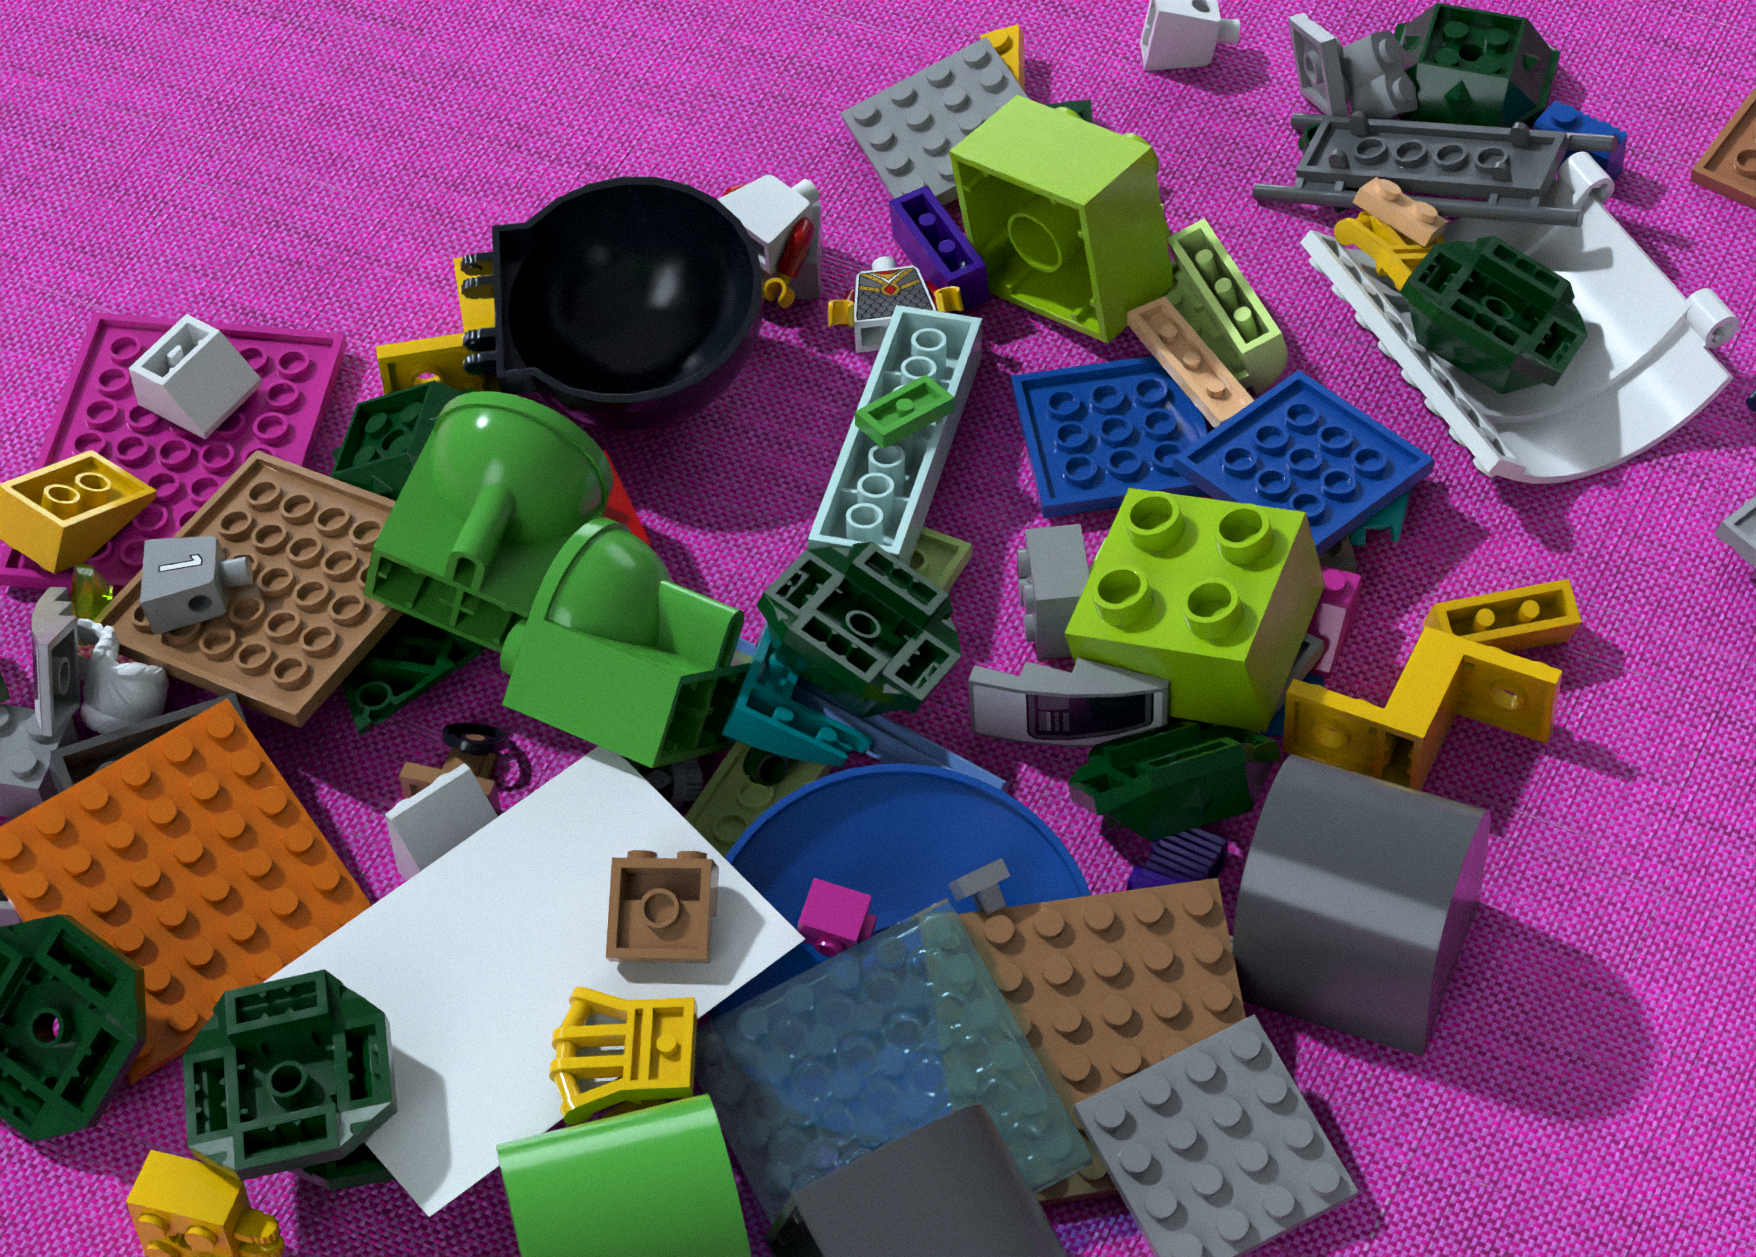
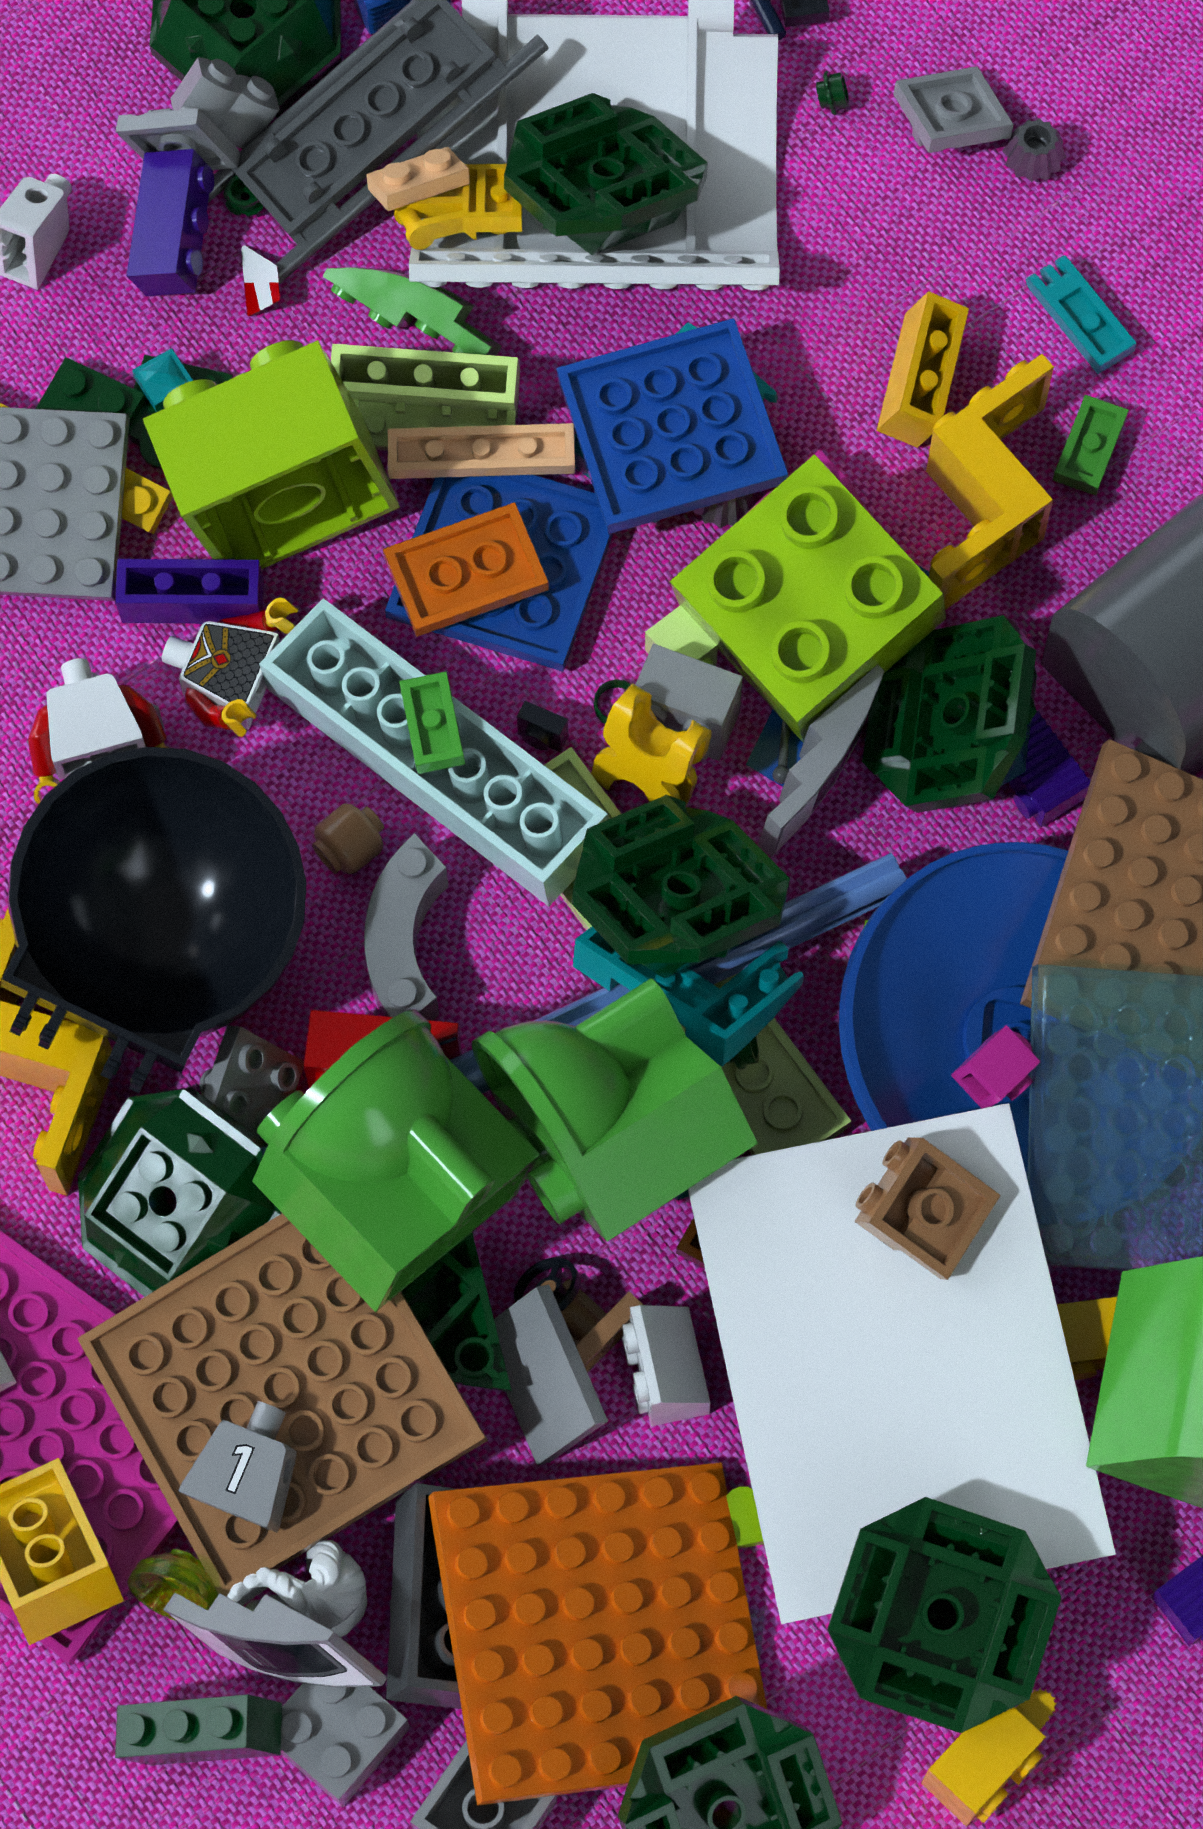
camera: 65 degrees left, 20 degrees up
(390, 758) = (546, 1376): none -> light grey tile
(655, 1059) = (1070, 1280): yellow plate -> none
(728, 498) = (392, 922): none -> light grey brick
(795, 443) = (348, 838): none -> medium nougat head
(976, 520) = (542, 727): none -> black plate
(982, 886) = (1023, 929): light grey tile -> none
(988, 577) = (647, 751): none -> yellow piece
(1077, 400) = (465, 569): none -> orange plate
(1249, 184) = (260, 281): none -> white sticker
(1252, 103) = (170, 222): none -> dark purple brick
(1301, 289) = (398, 301): none -> bright green slope
(1530, 782) = (1090, 445): none -> bright green plate
(1654, 724) = (1081, 315): none -> teal hinge
(1728, 459) = (833, 92): none -> dark green plate

